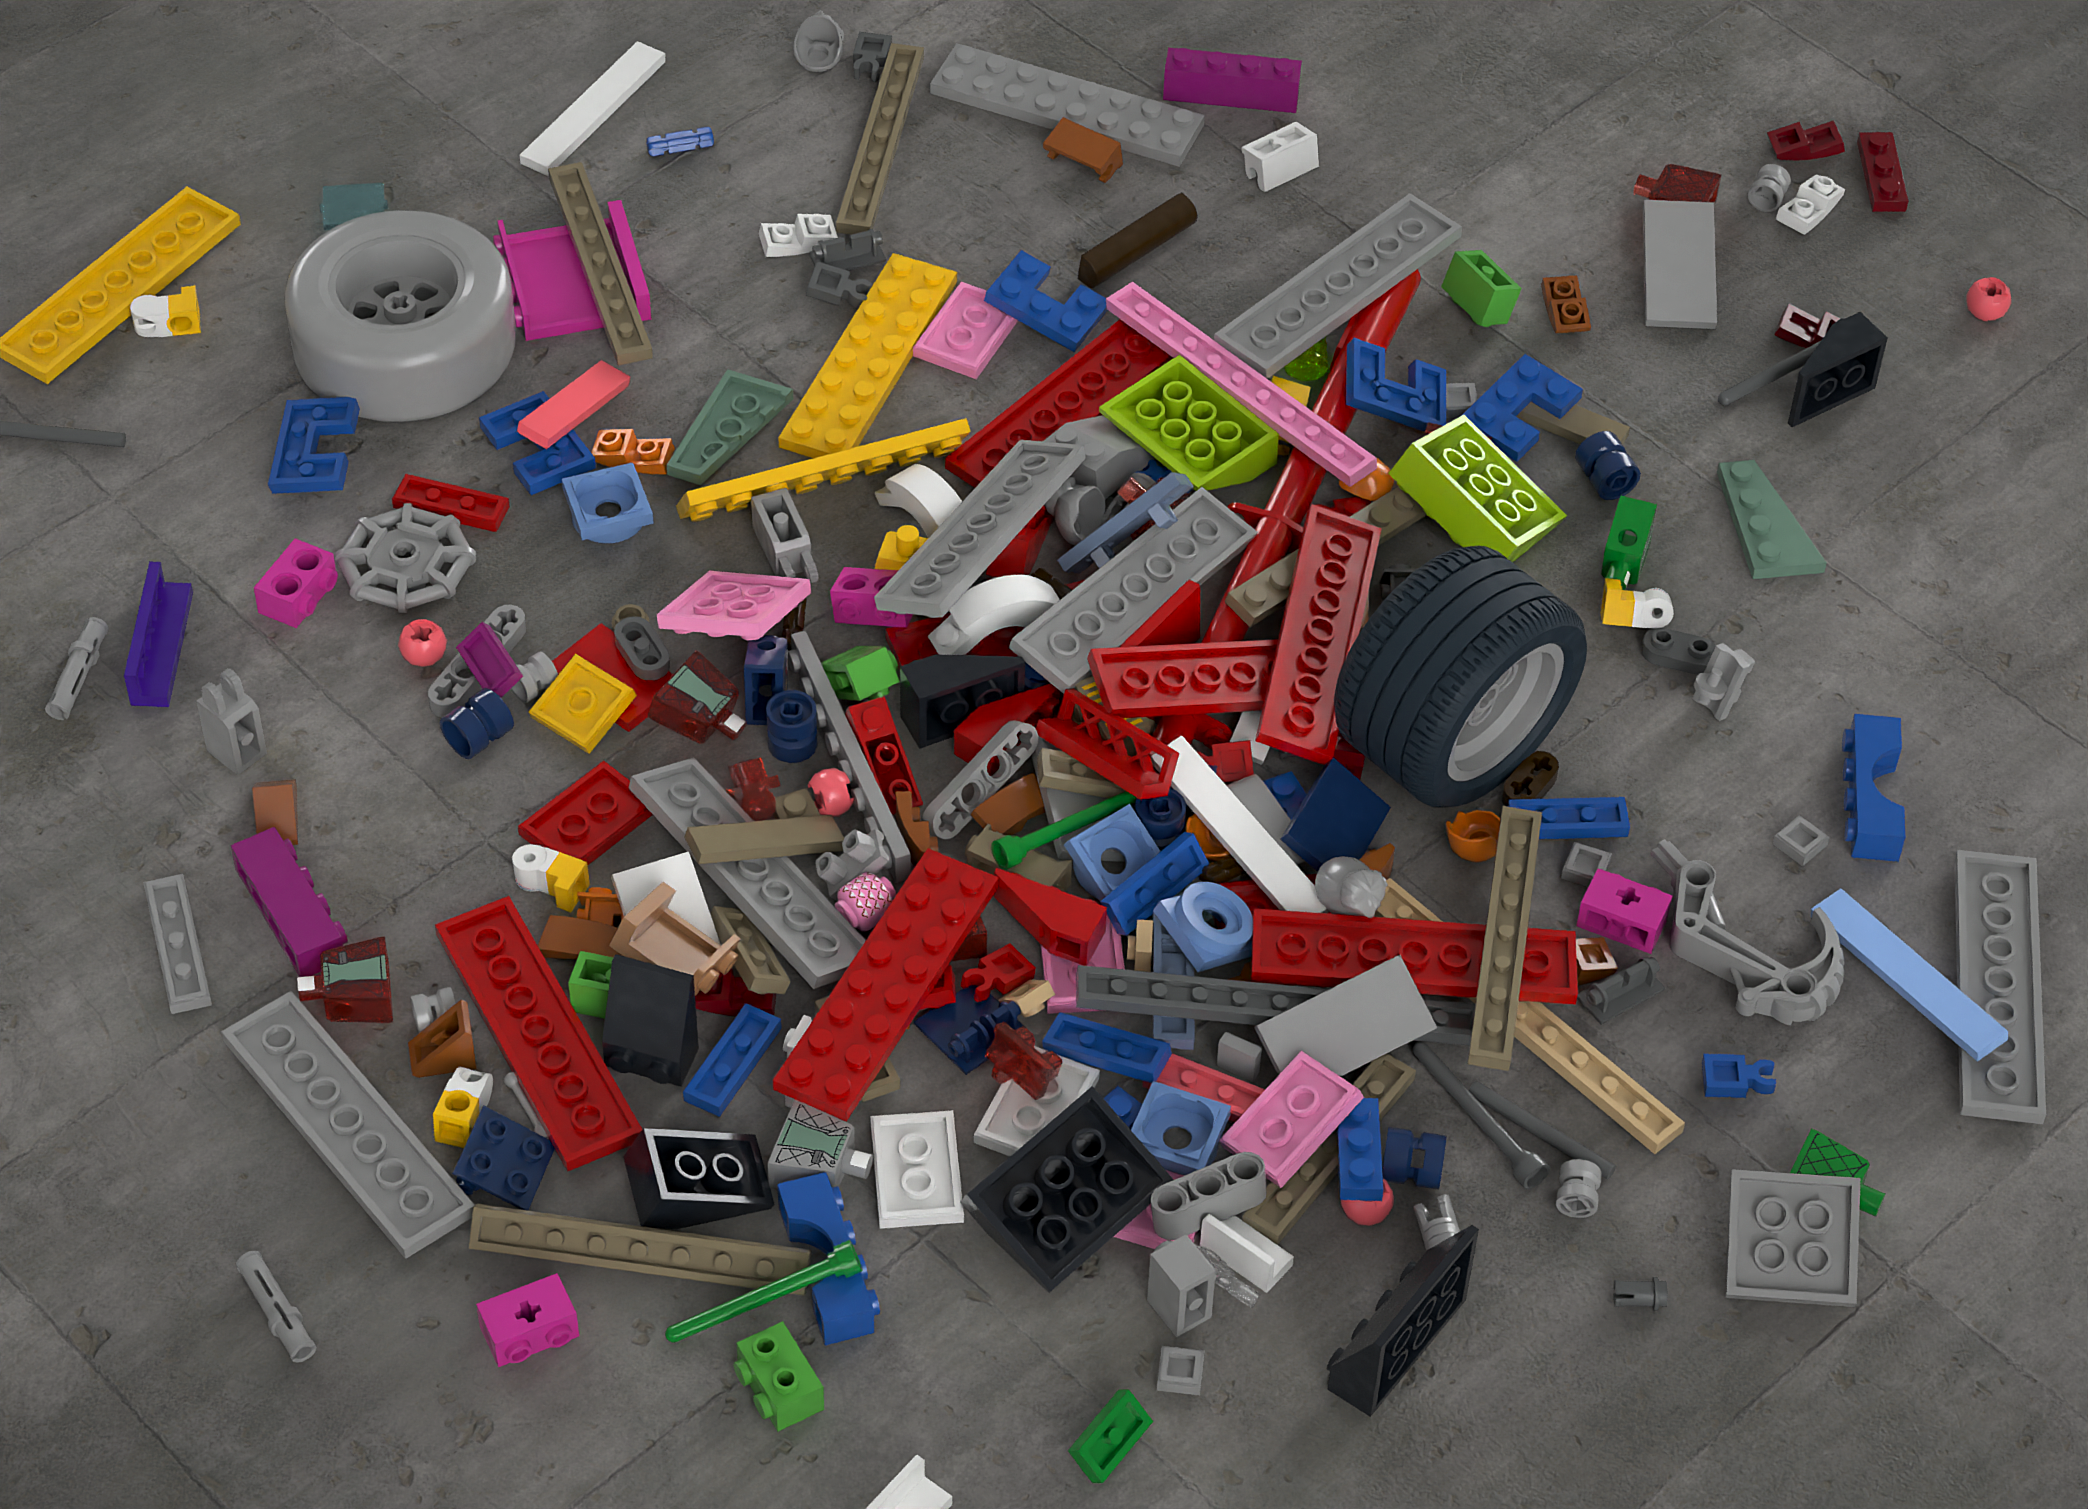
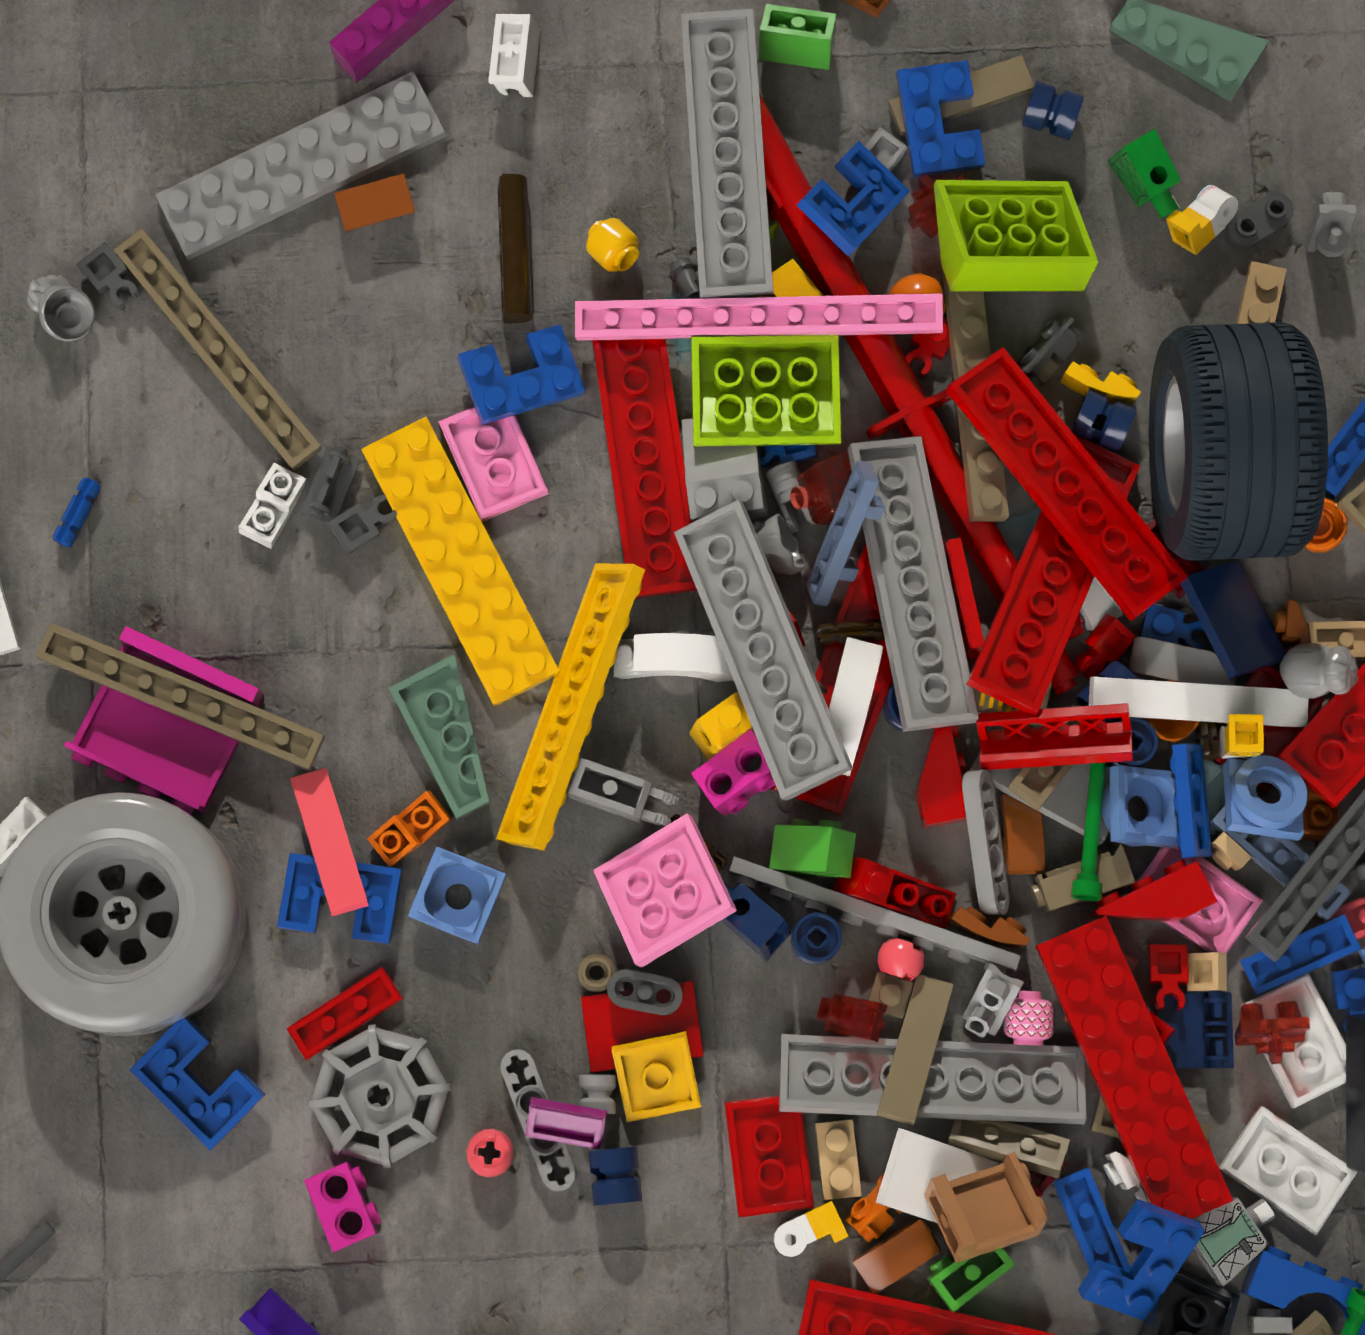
camera: 50 degrees left, 30 degrees up
(634, 851) = (838, 1159): none -> tan plate
(650, 1021) = (1038, 1279): black slope -> none
(698, 702) = (731, 989): clear red torso -> none
(766, 1093) = (1166, 1245): none -> blue plate
(767, 1226) = (1269, 1321): none -> light grey plate
(948, 688) = (887, 806): black slope -> none
(1203, 289) = (612, 245): none -> yellow head
(1238, 864) = (1242, 736): none -> yellow leg
(1617, 691) = (1261, 293): none -> tan plate

